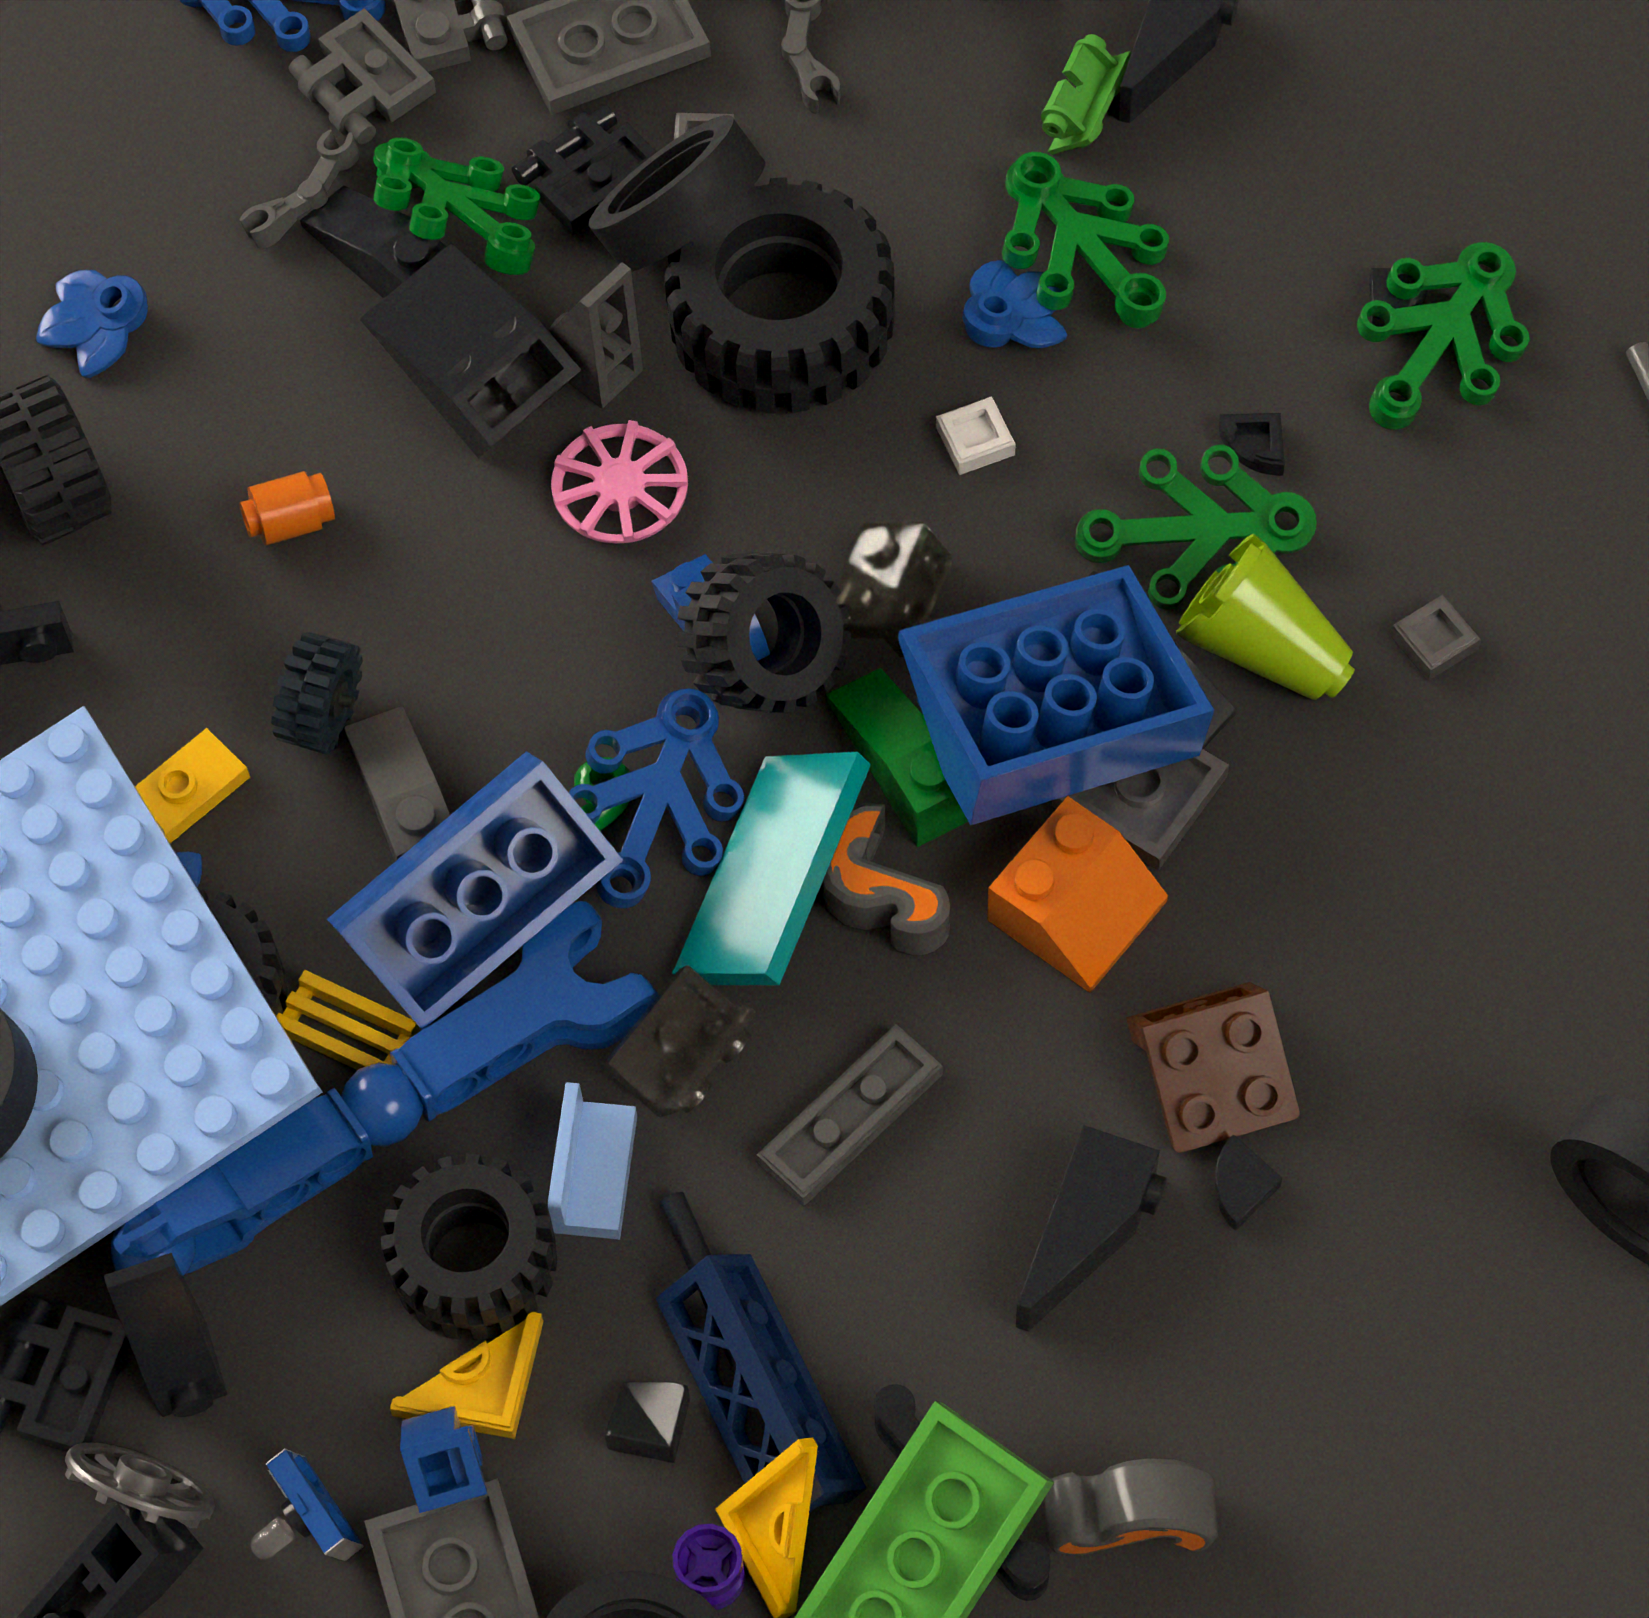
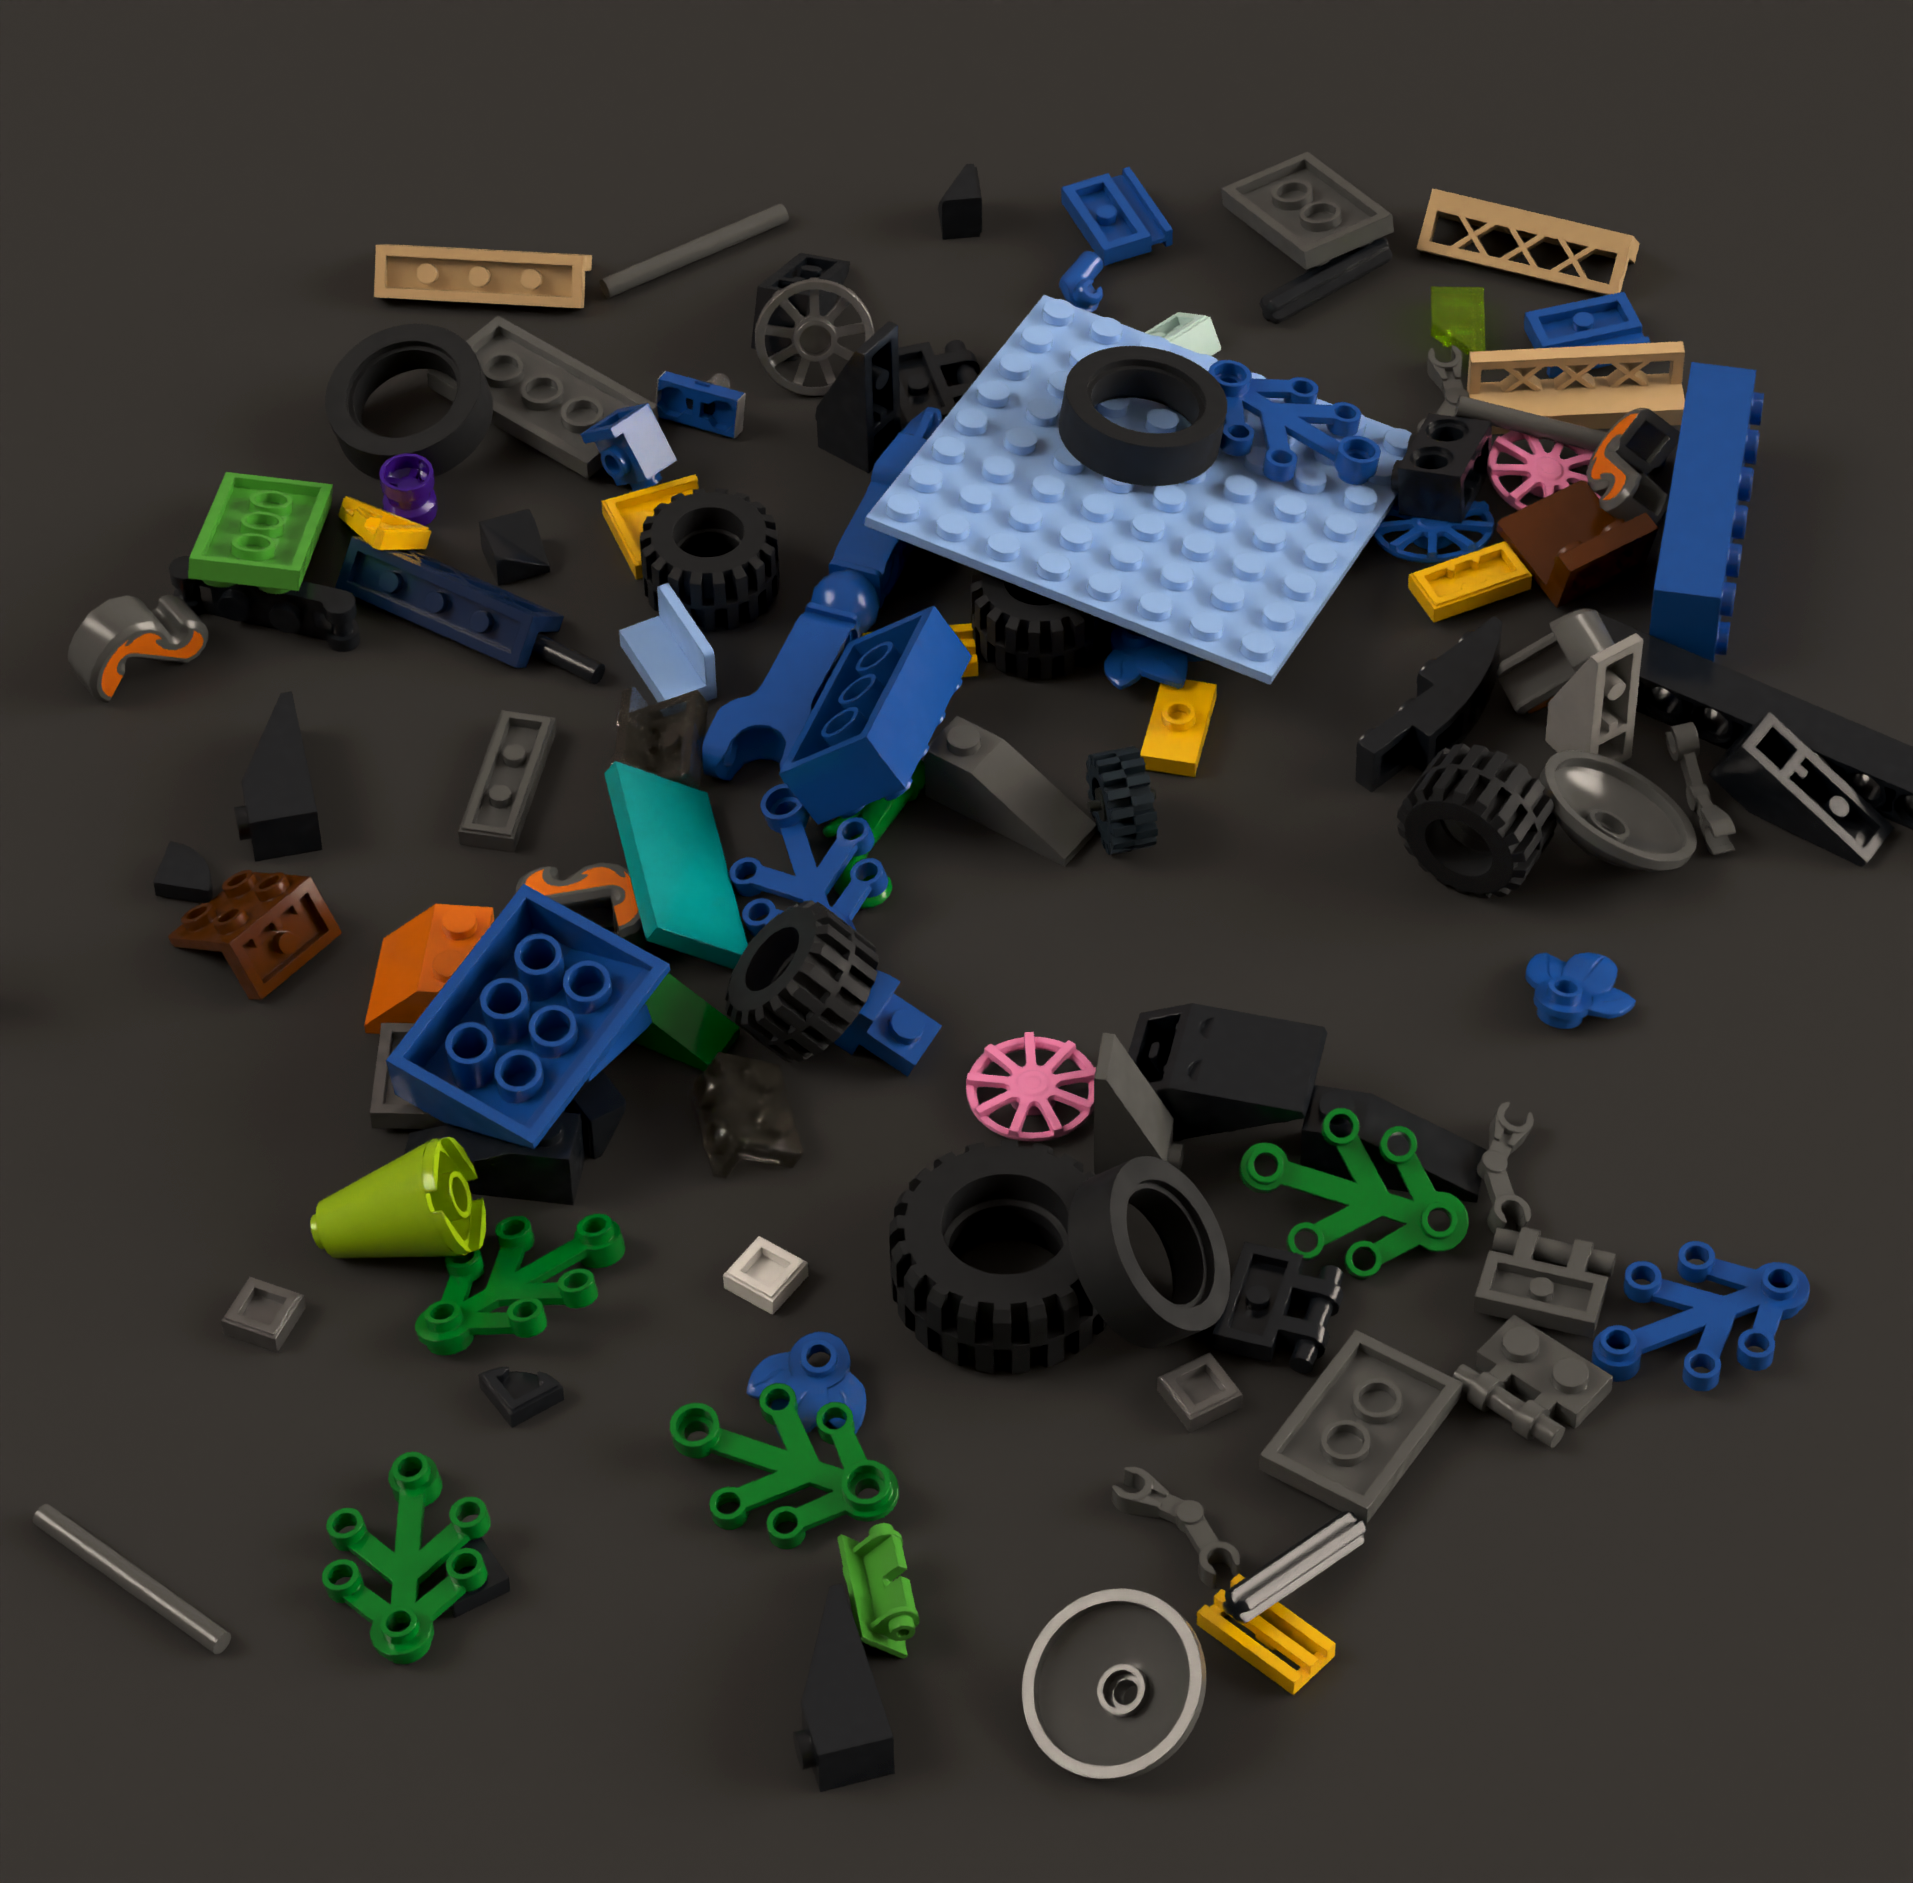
camera: 145 degrees right, 15 degrees down
(287, 507) = (1277, 928): orange brick -> none

